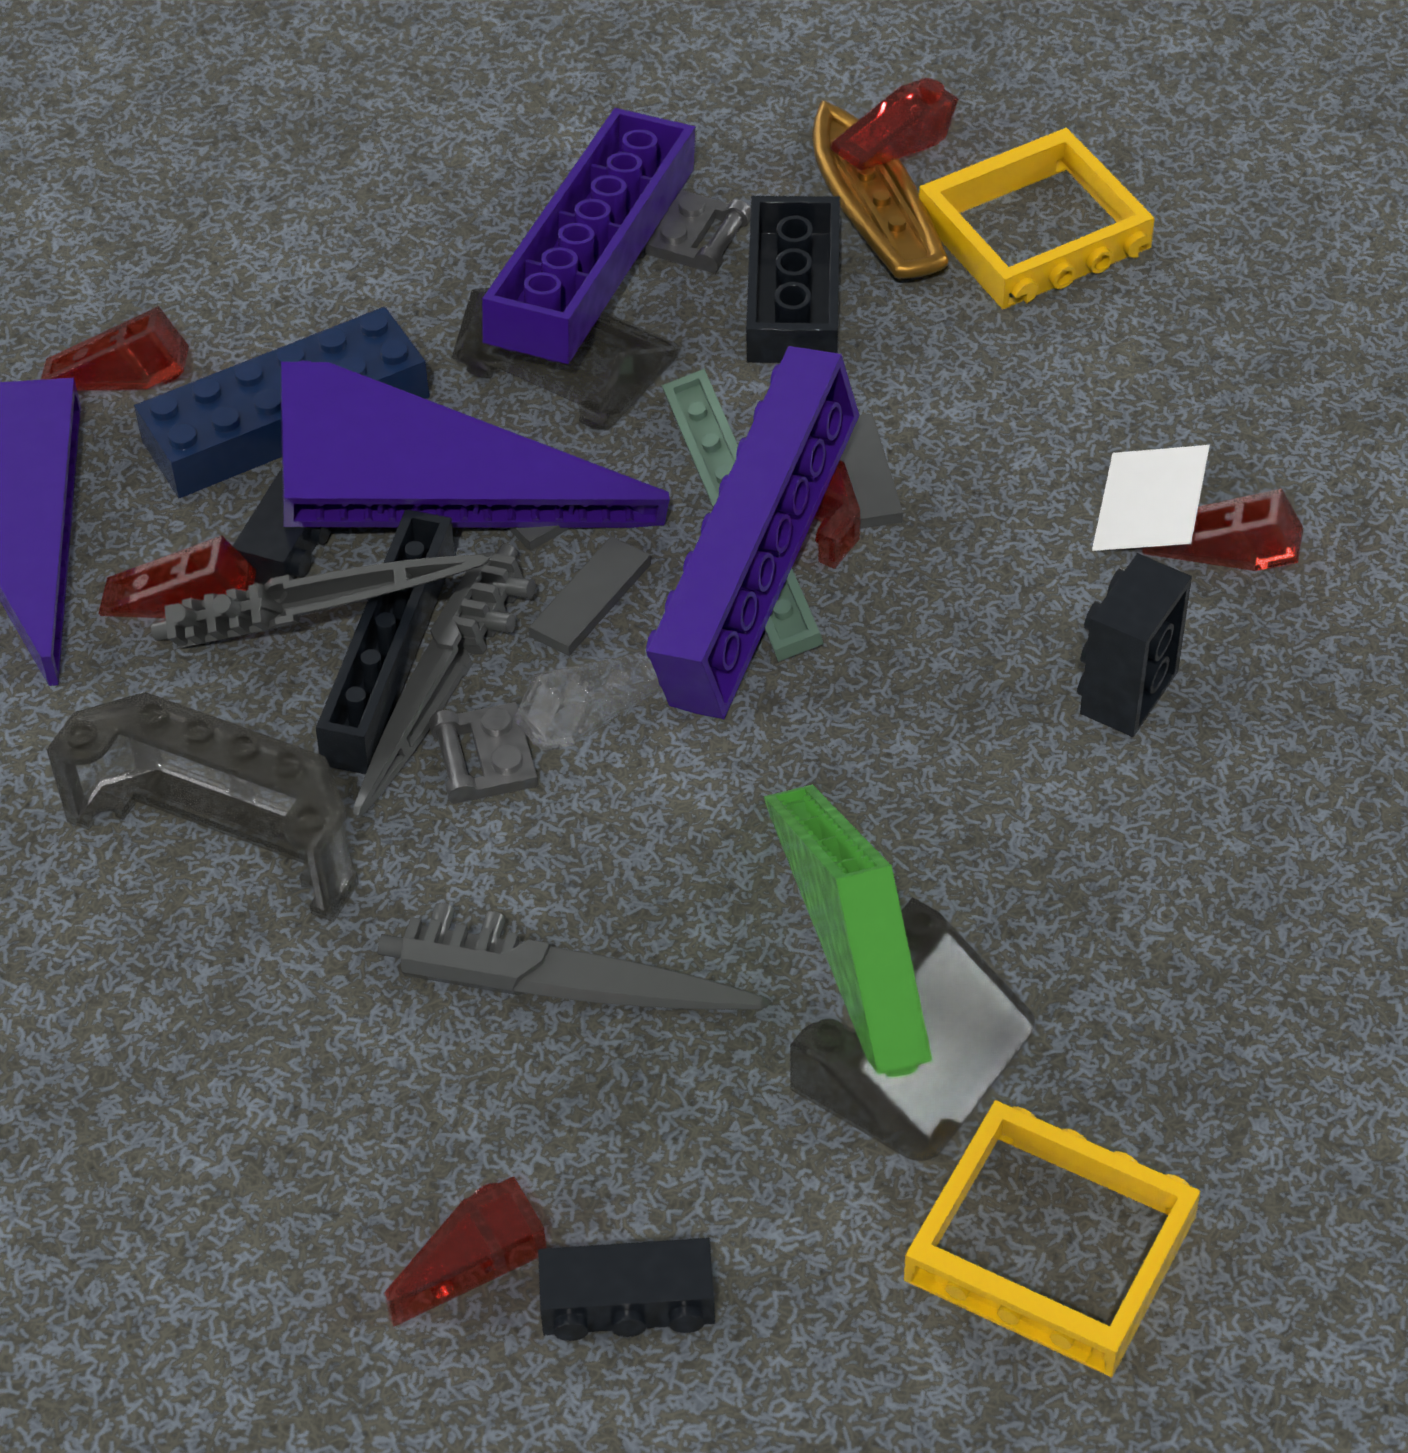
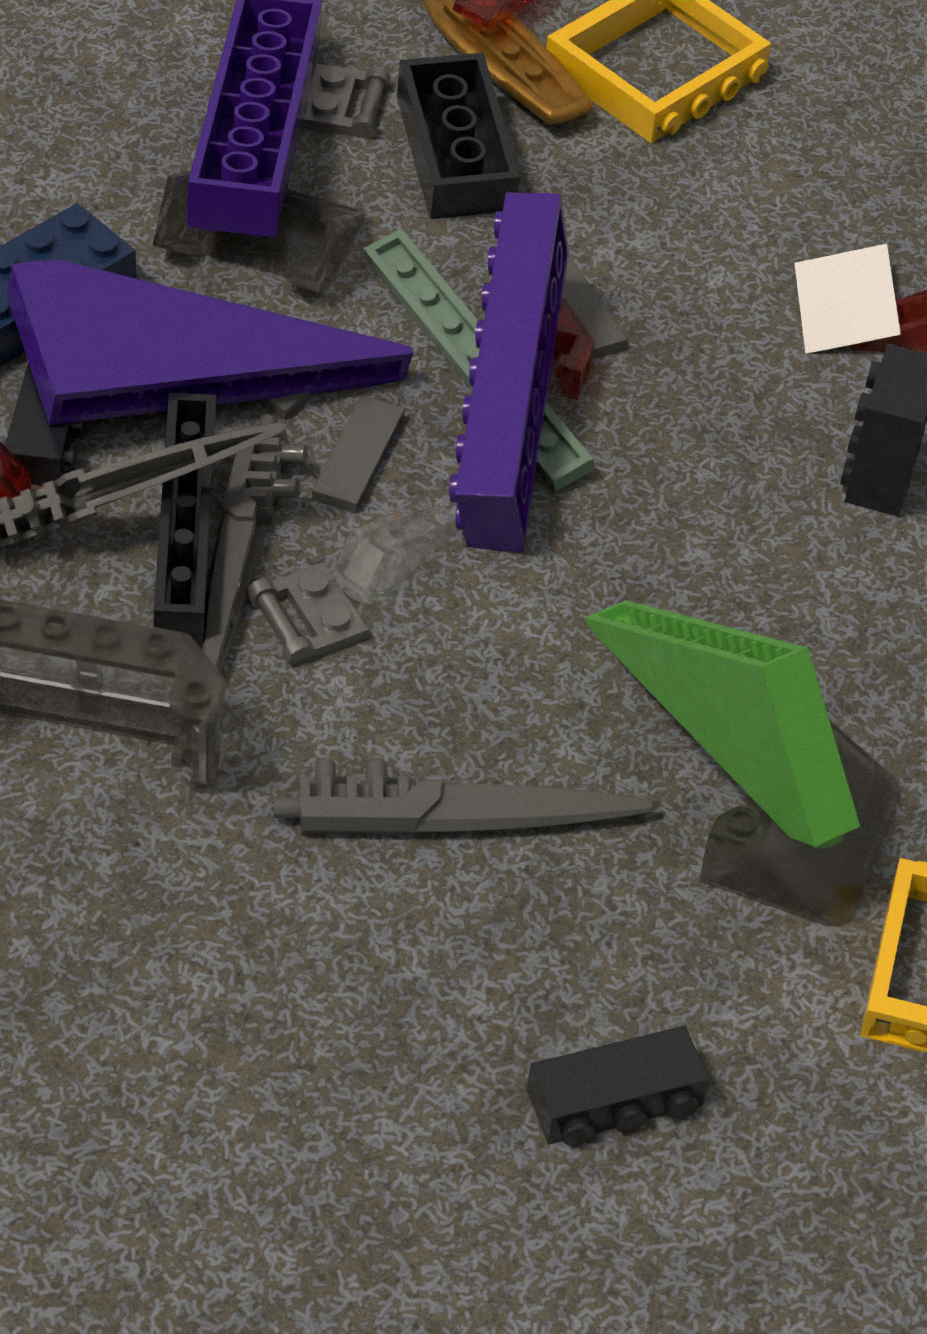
camera: 20 degrees left, 0 degrees up
(474, 1245) = (469, 1065): clear red slope -> none

